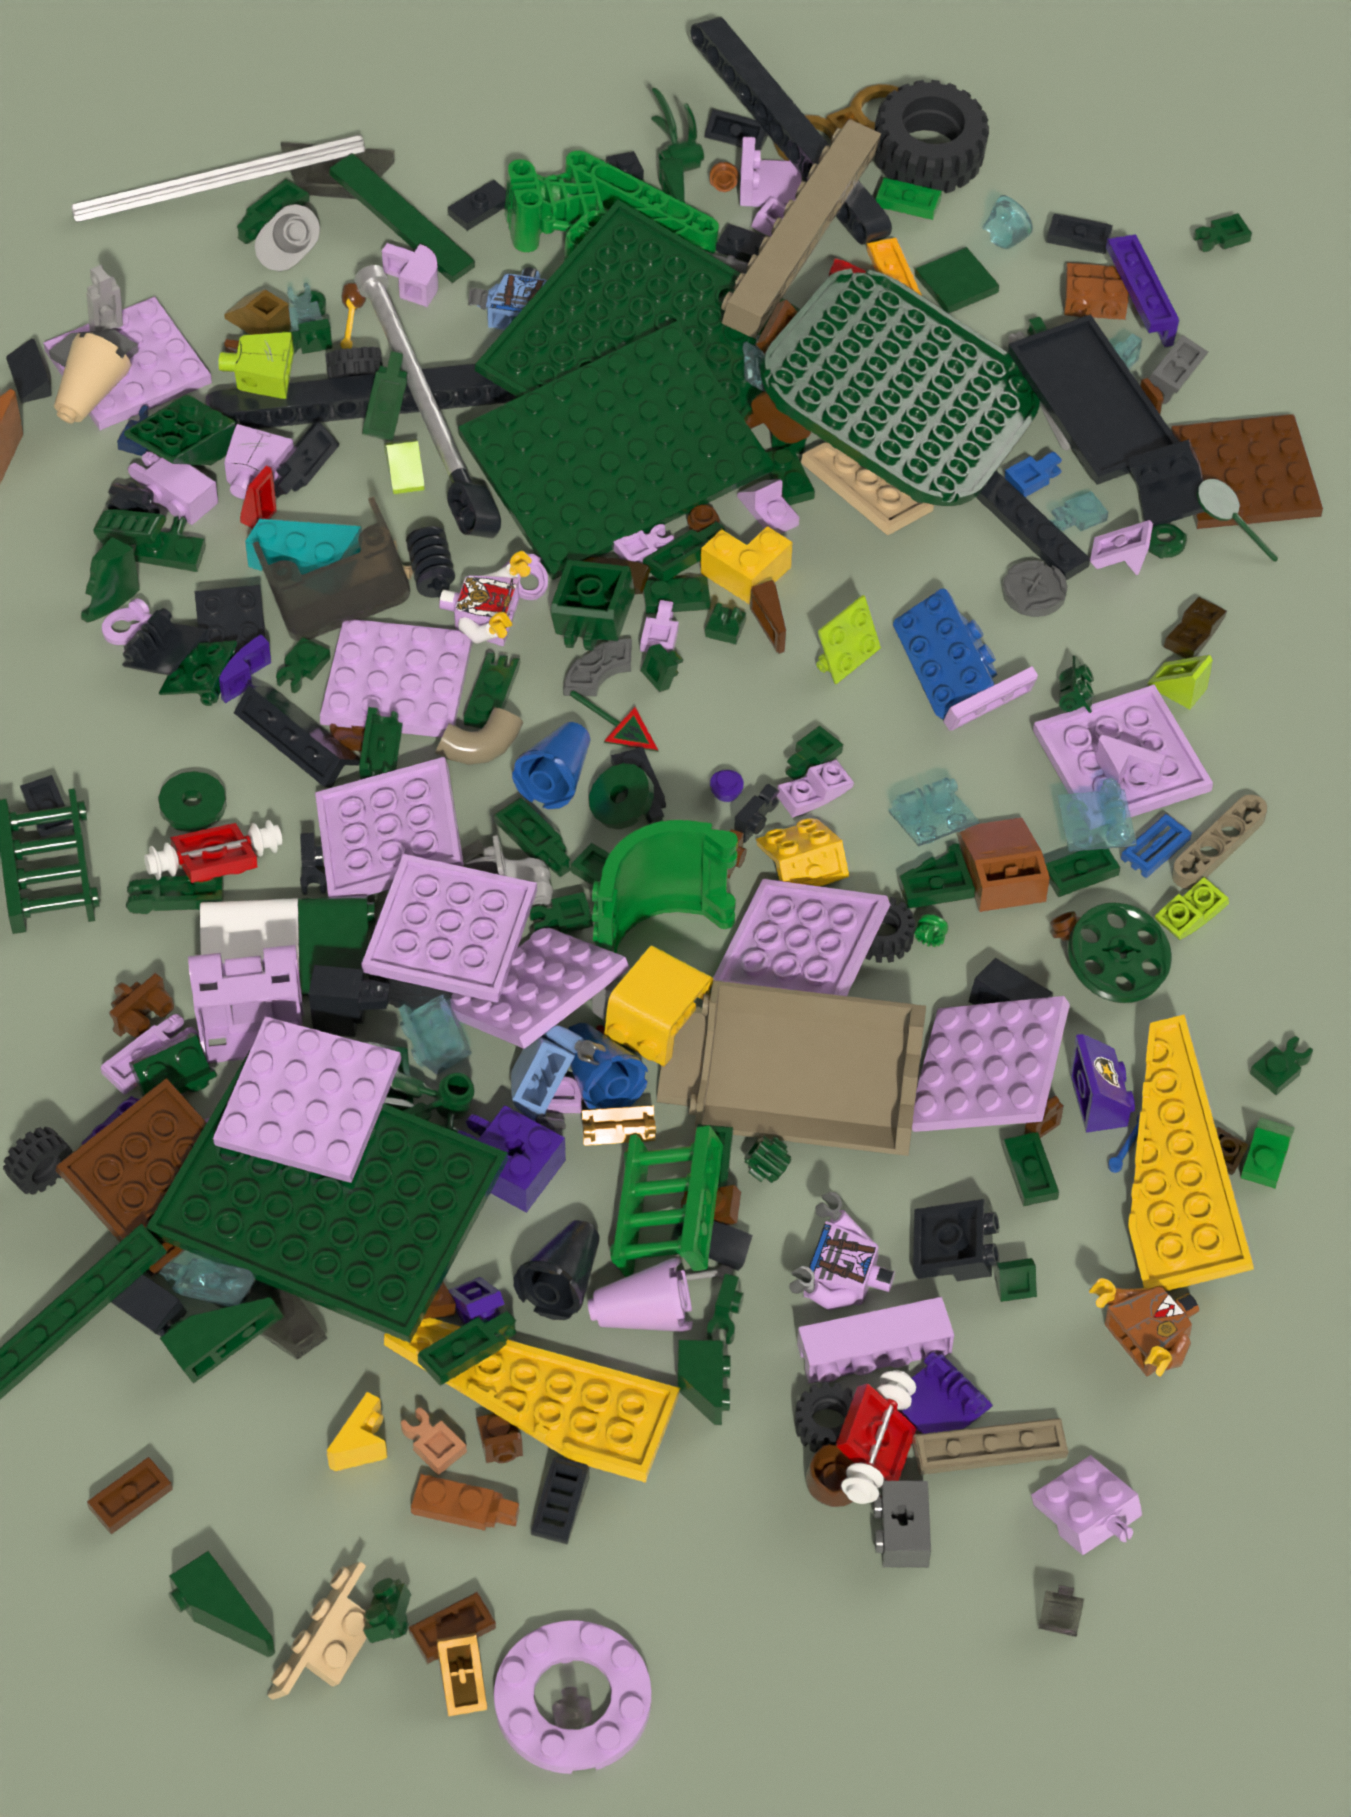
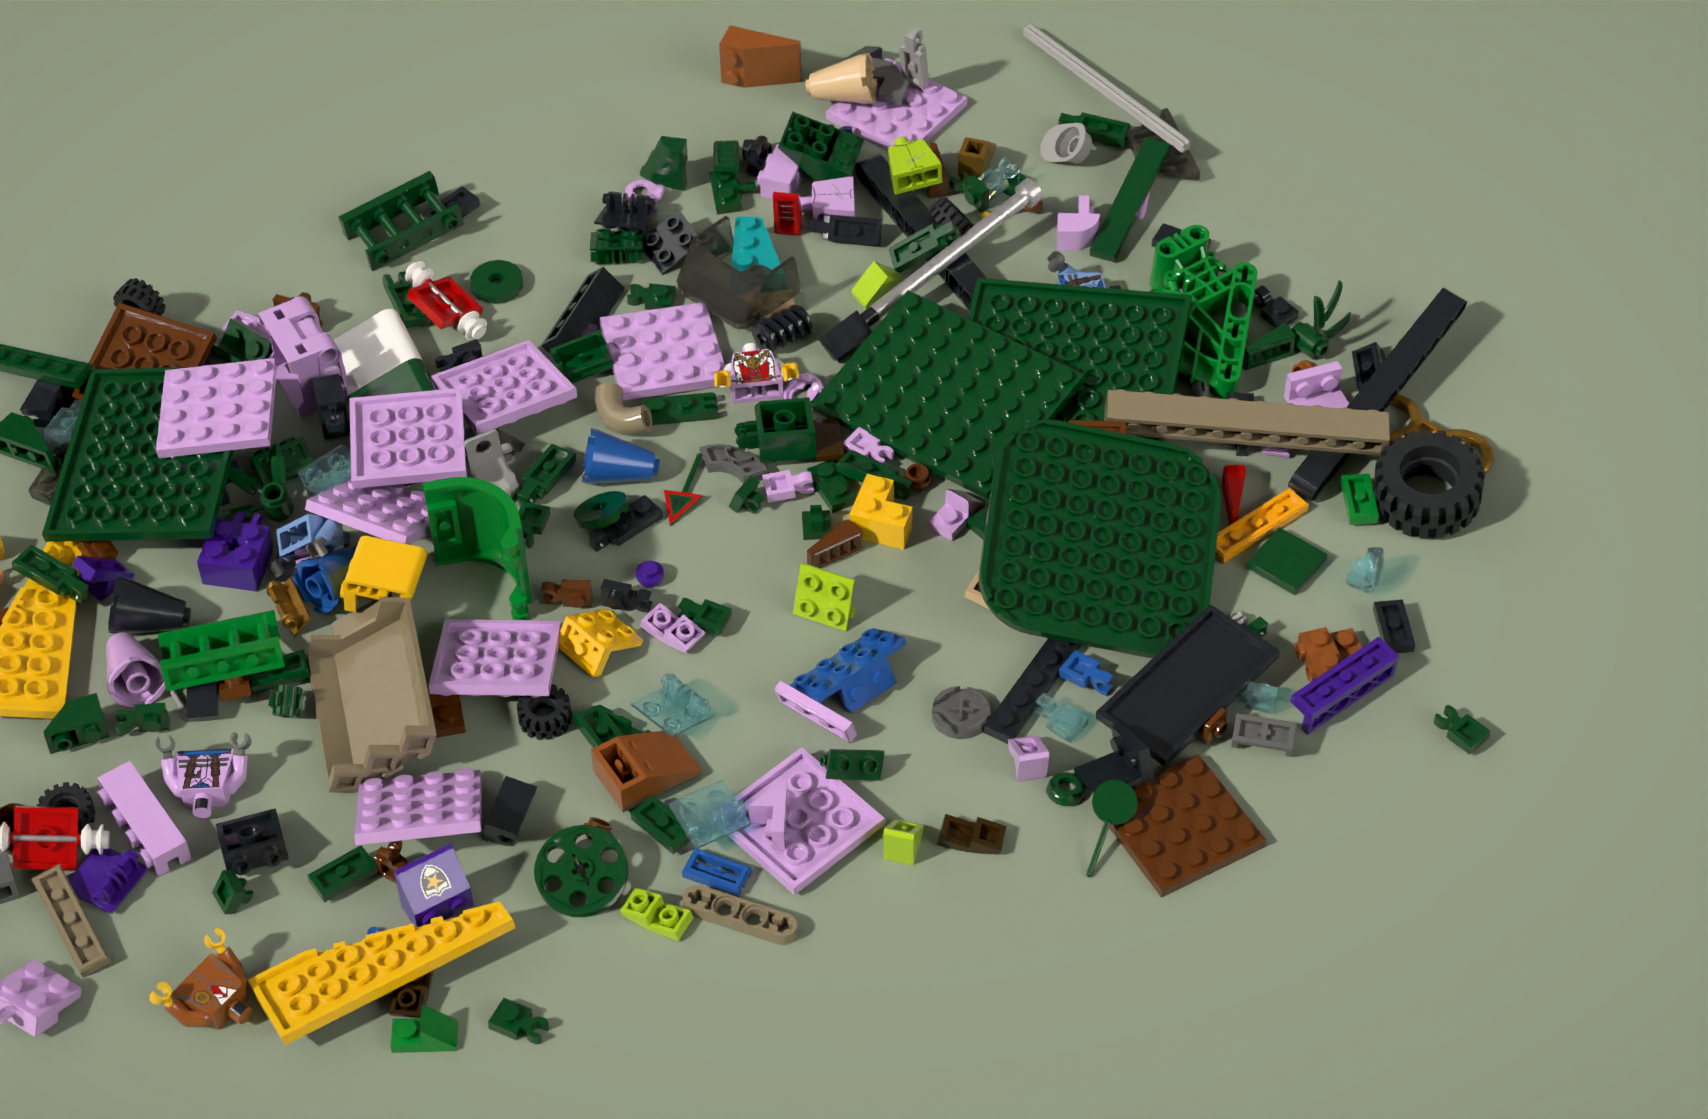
camera: 70 degrees right, 5 degrees down
(238, 671) = (623, 261): dark purple slope -> none
(931, 930) = (556, 742): green bush -> none

